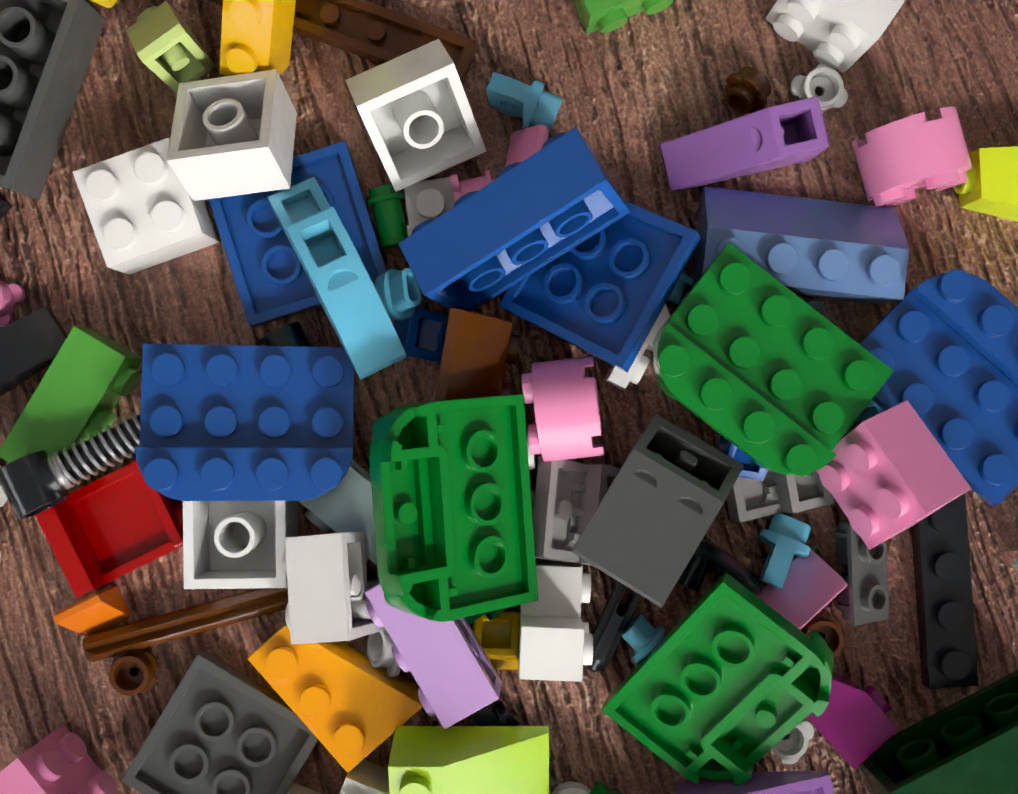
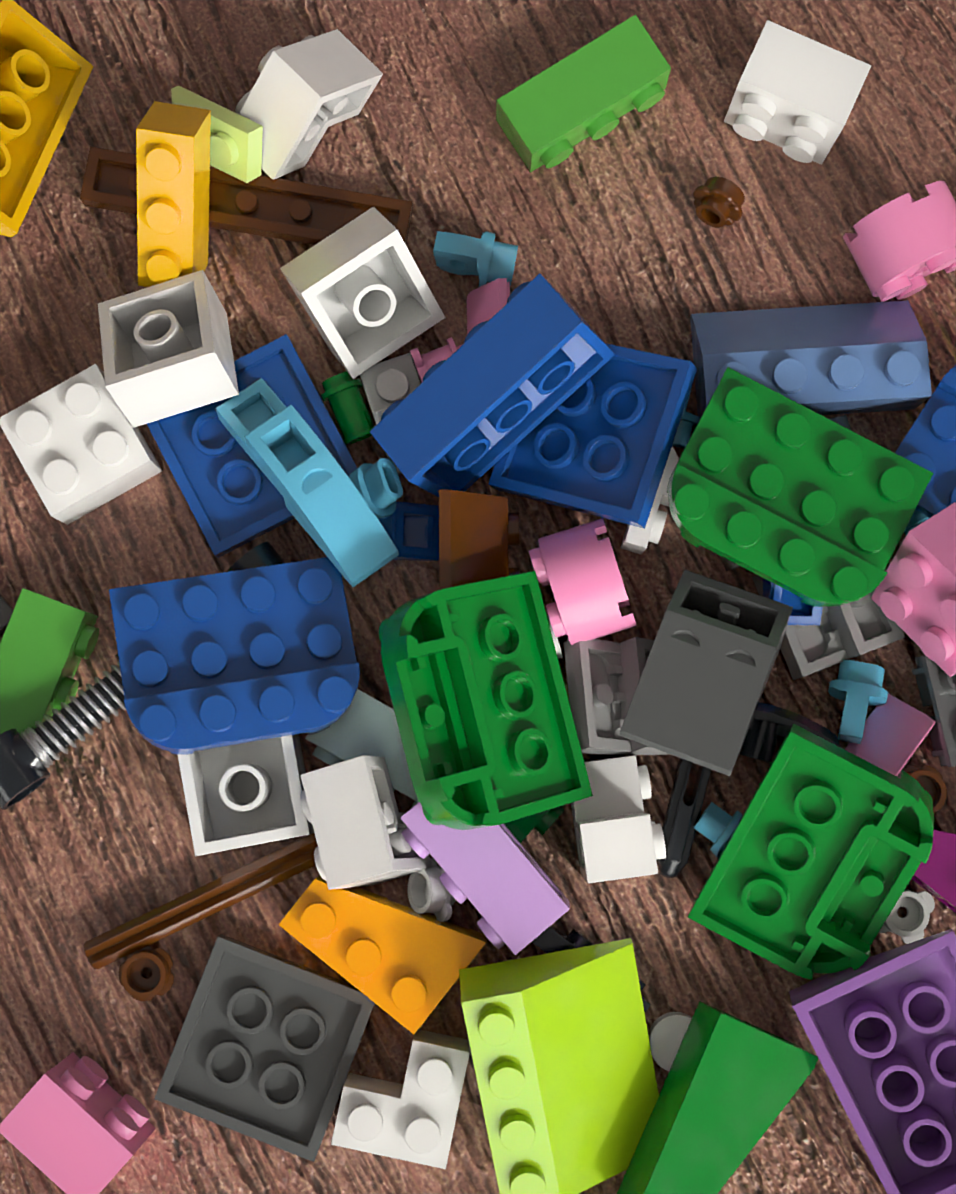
camera: 10 degrees left, 5 degrees down
(94, 612) = (91, 912): orange slope -> none
(111, 528) = (103, 805): red panel -> none
(168, 46) = (77, 265): yellowish green slope -> none
(499, 639) = (559, 857): yellow slope -> none
(746, 145) = (727, 262): medium lavender slope -> none
(825, 78) = (812, 184): white plate -> none

